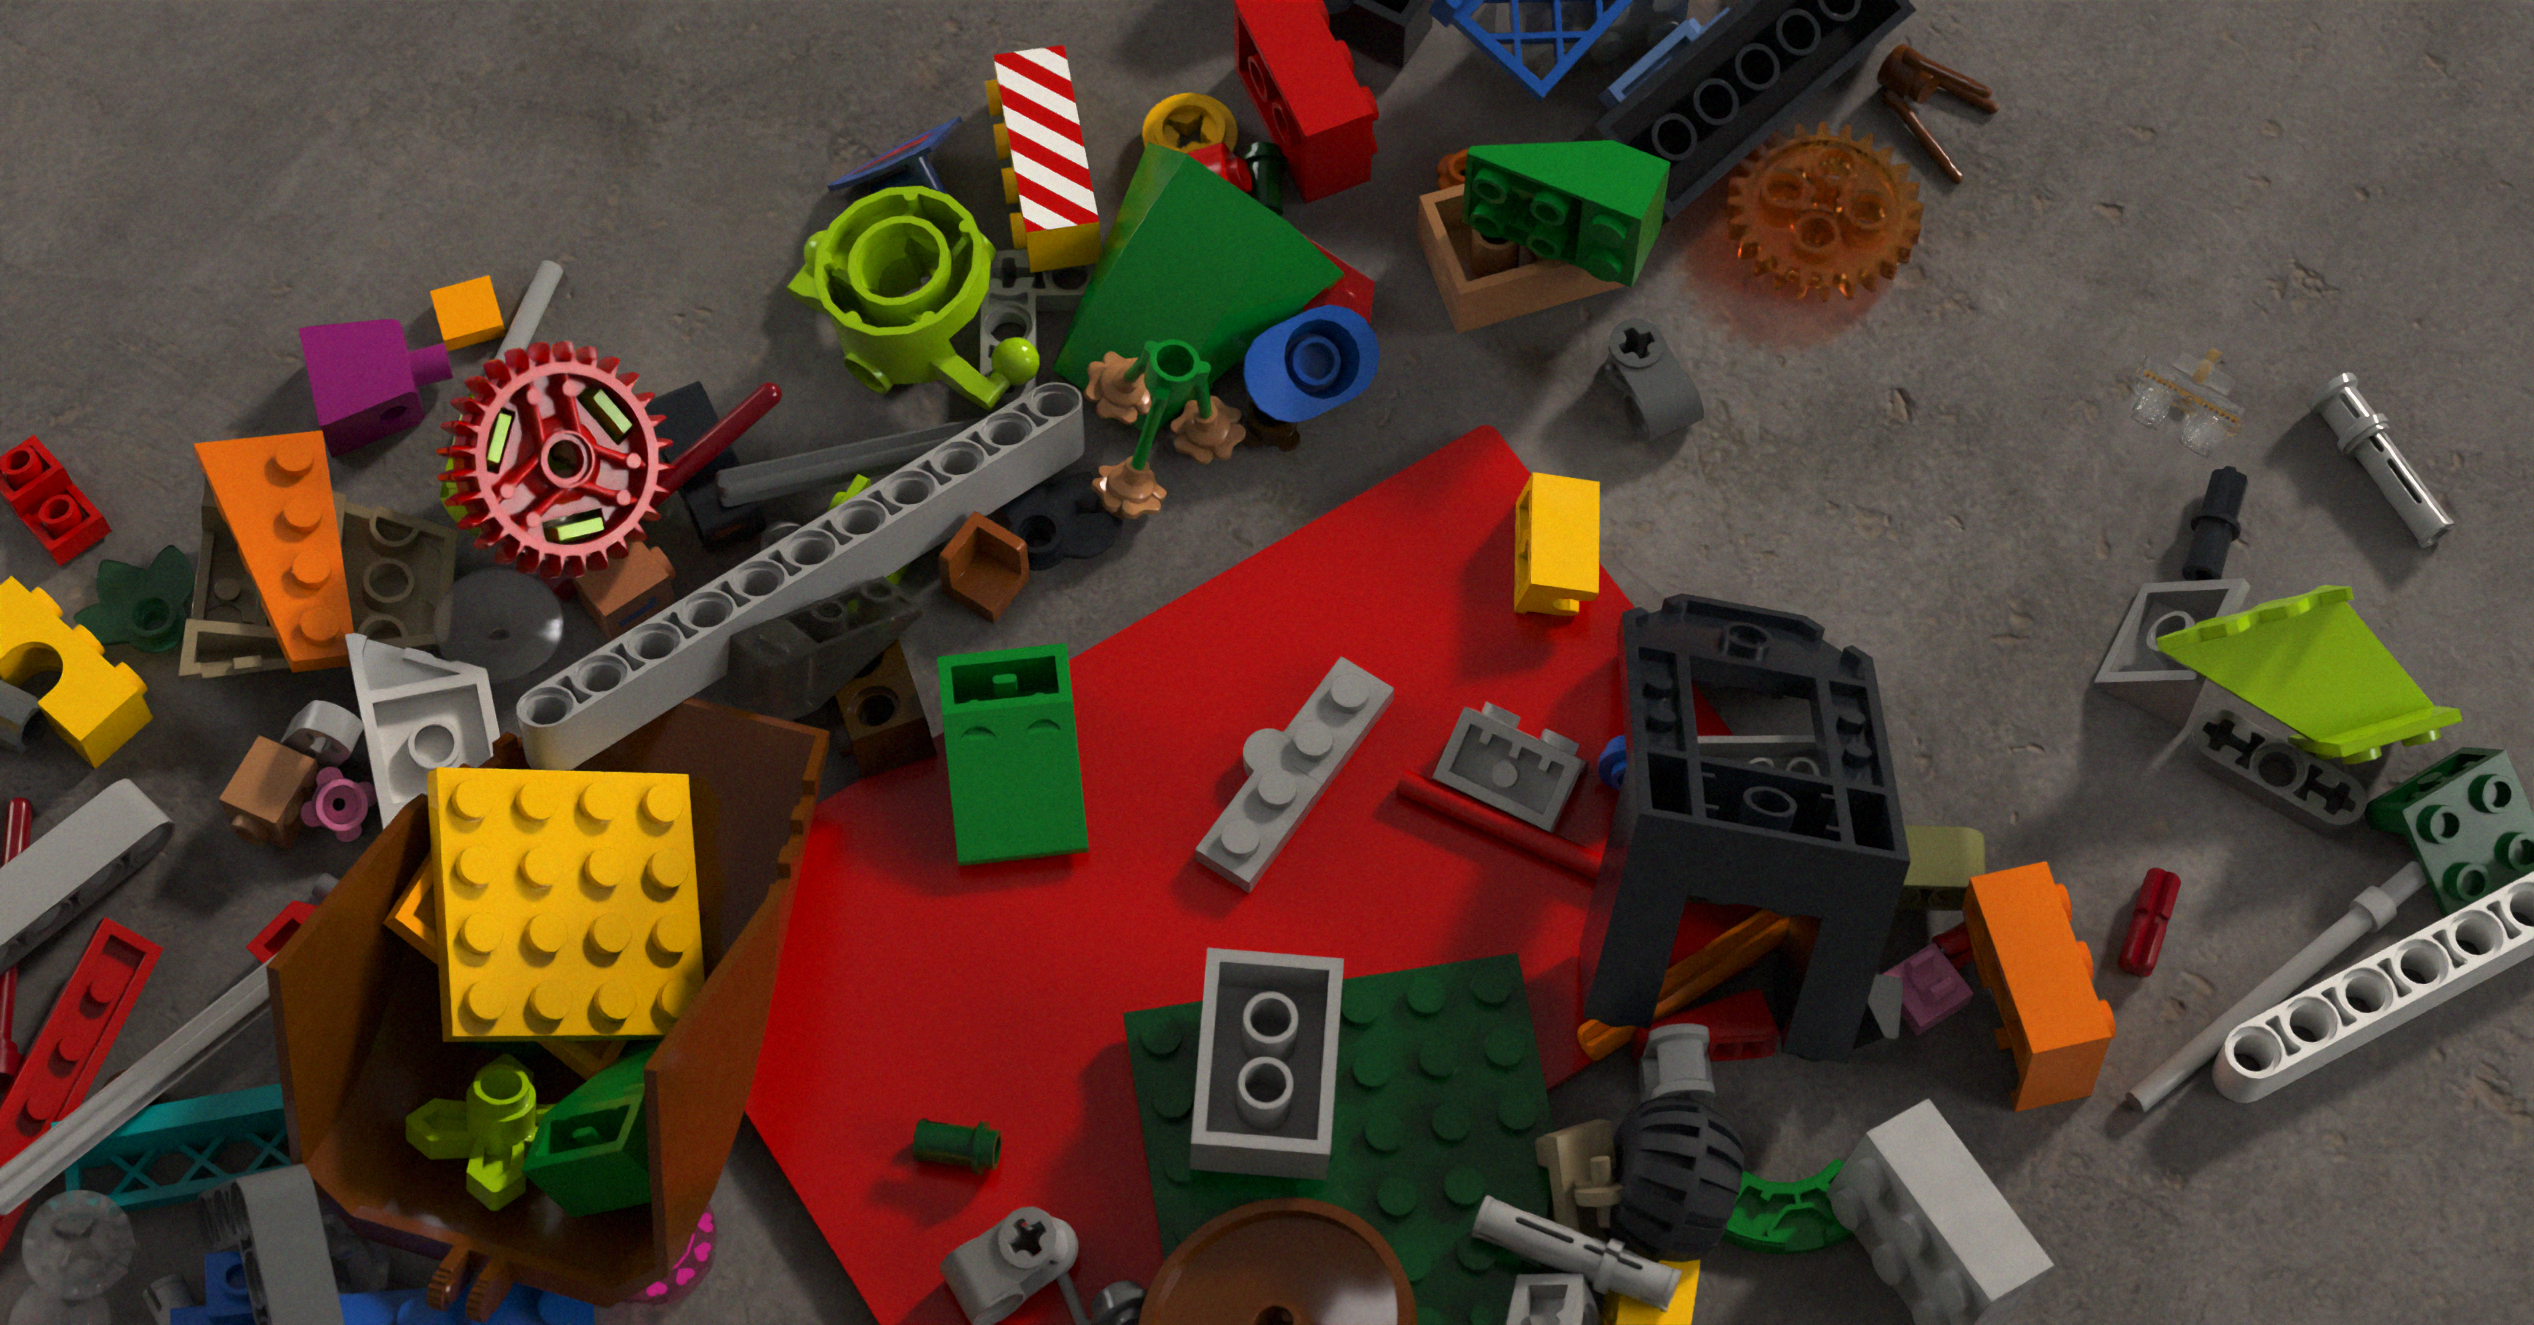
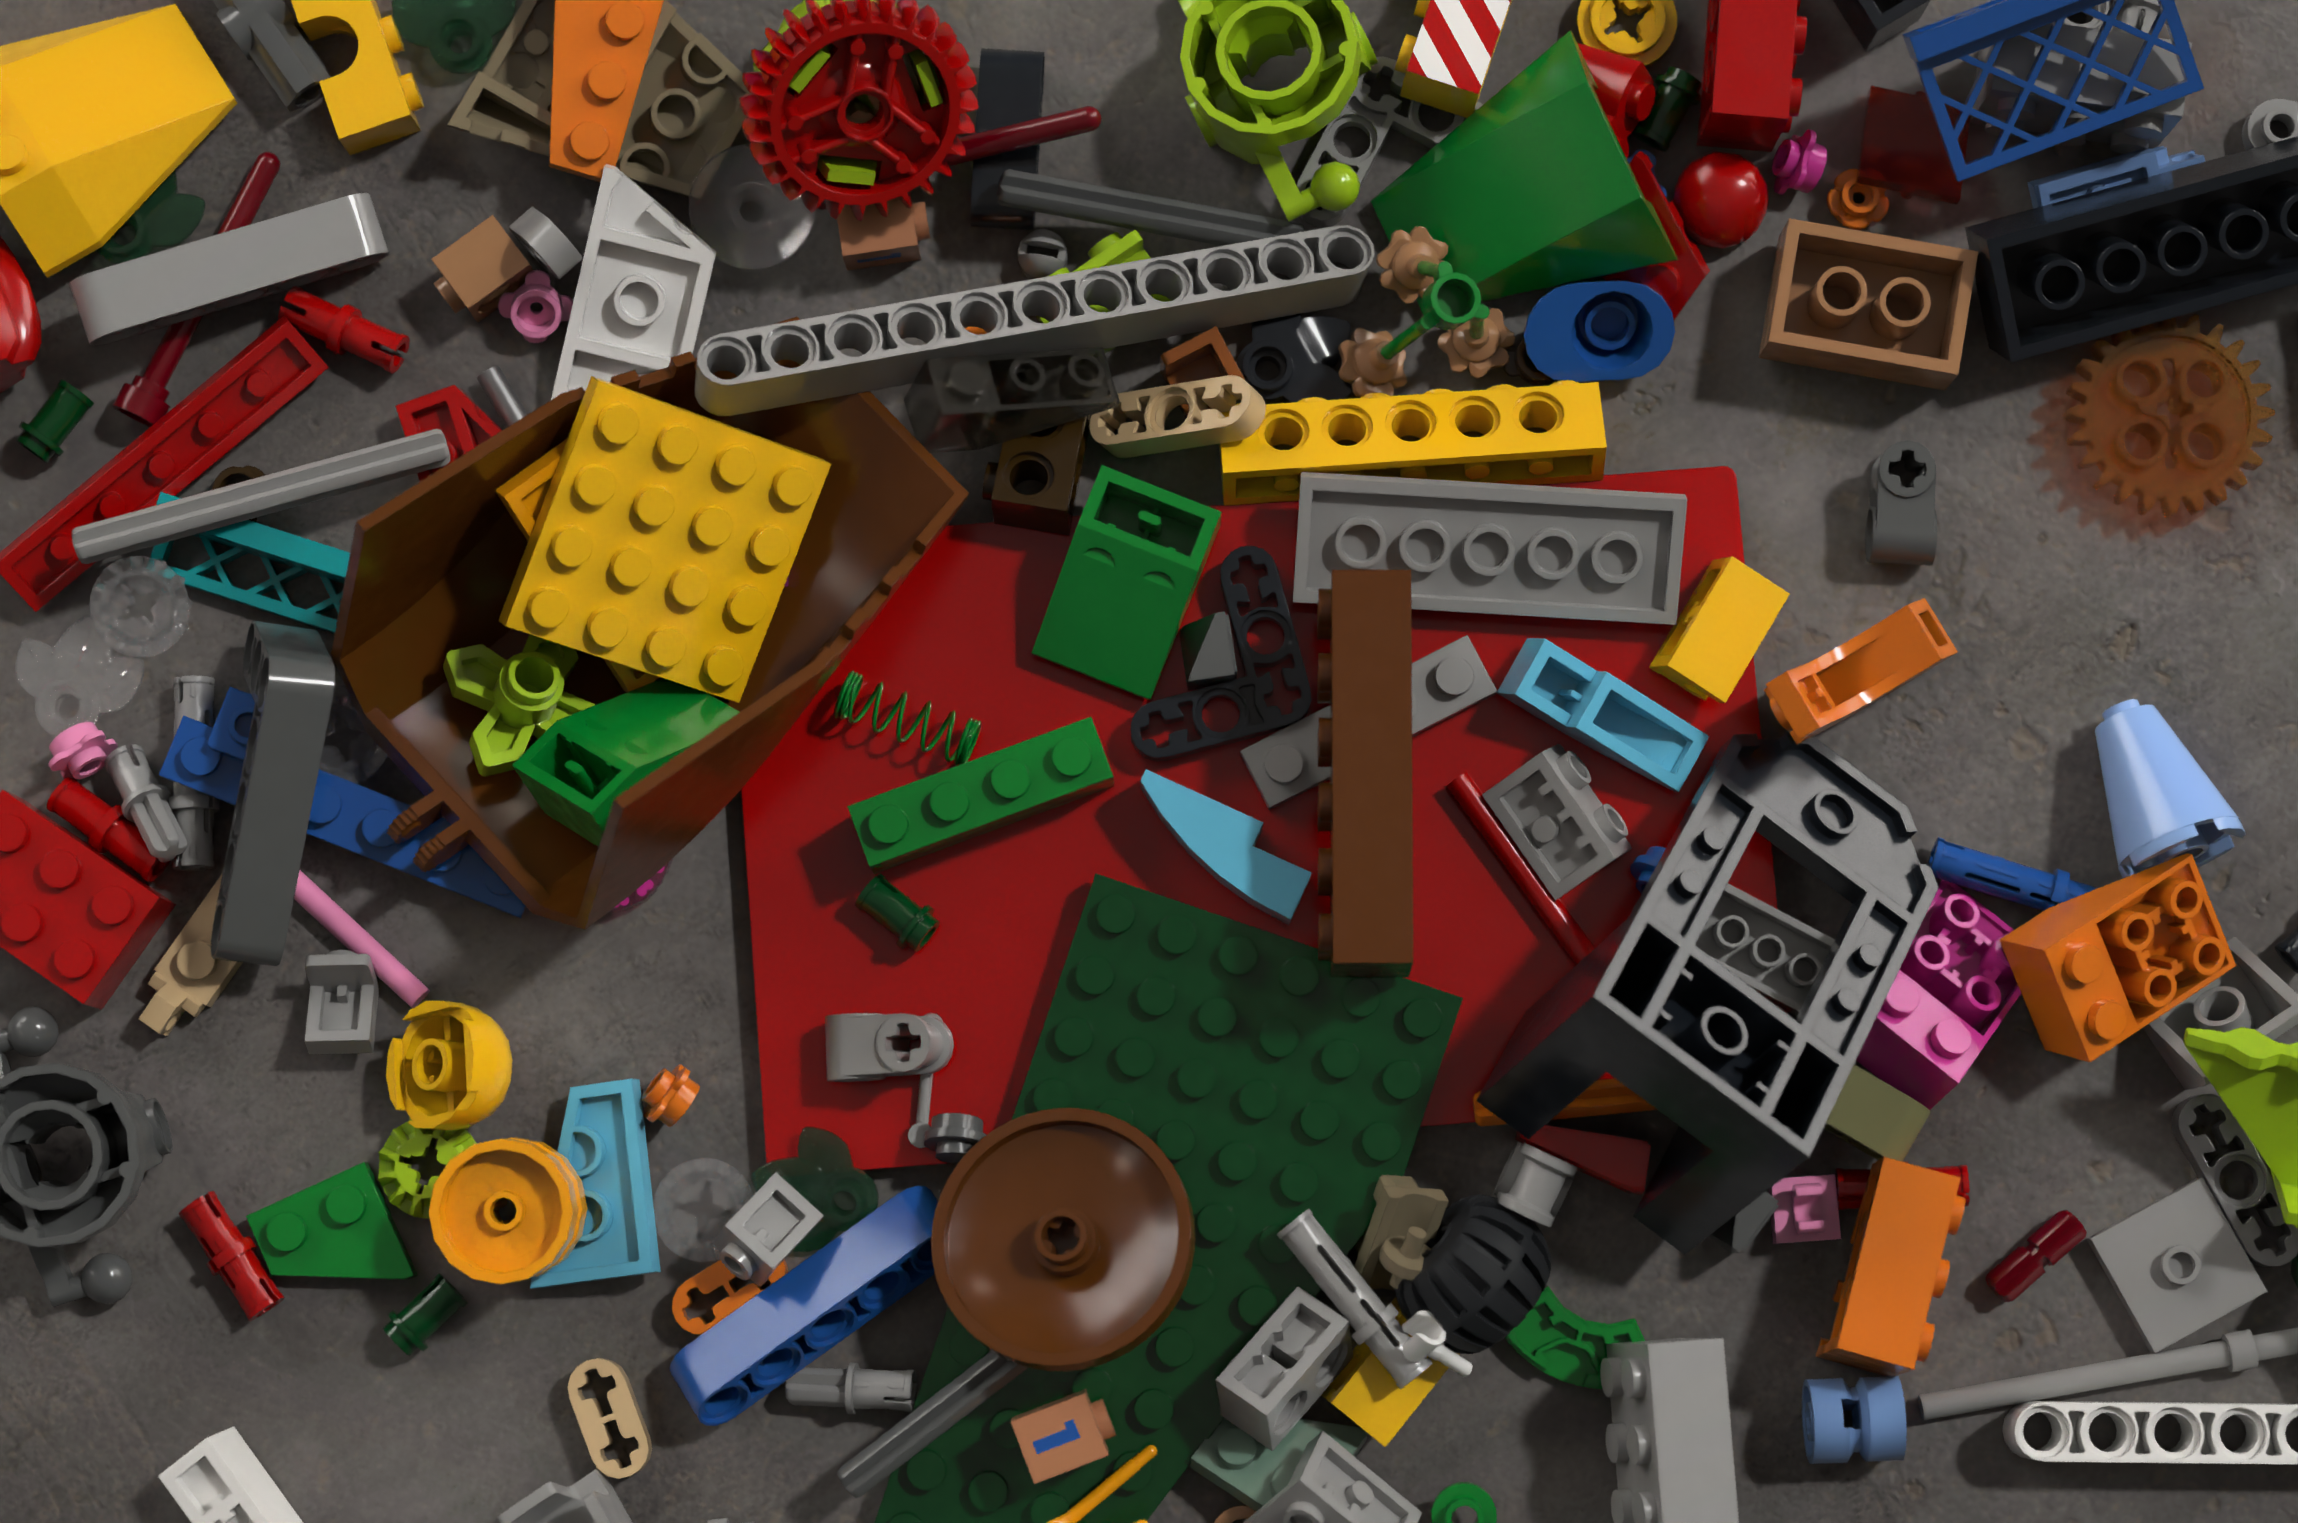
camera: 30 degrees right, 20 degrees up
(166, 908) = (344, 329): none -> red pin
(810, 984) = (849, 694): none -> green piece
(937, 630) = (1200, 427): none -> tan beam
(979, 1000) = (981, 795): none -> green brick
(1120, 781) = (1208, 651): none -> dark grey slope
(1172, 800) = (1245, 692): none -> black beam
(1199, 532) = (1506, 453): none -> yellow brick
(1219, 918) = (1225, 847): none -> medium azure slope
(1267, 1064) = (1181, 1001): light grey brick -> none
(1316, 573) = (1497, 545): none -> light grey plate
(1326, 789) = (1370, 773): none -> reddish brown brick
(1353, 225) = (1721, 199): none -> red hair
(1400, 170) = (1799, 163): none -> dark pink plate
(1485, 113) = (1904, 147): none -> clear red piece
(1495, 660) = (1602, 713): none -> medium azure slope
(1570, 202) = (1923, 325): green slope -> none
(1660, 1243) = (1428, 1341): none -> white hand
(1697, 523) = (1859, 671): none -> orange arch
(1940, 741) = (1943, 999): none -> dark pink slope
(2013, 497) = (2158, 793): none -> light blue cone
(2014, 614) = (2003, 877): none -> blue pin
(2058, 635) = (2117, 957): none -> orange slope
(2091, 1131) = (1877, 1419): none -> medium blue wheel
(2272, 868) = (2176, 1265): none -> light grey plate

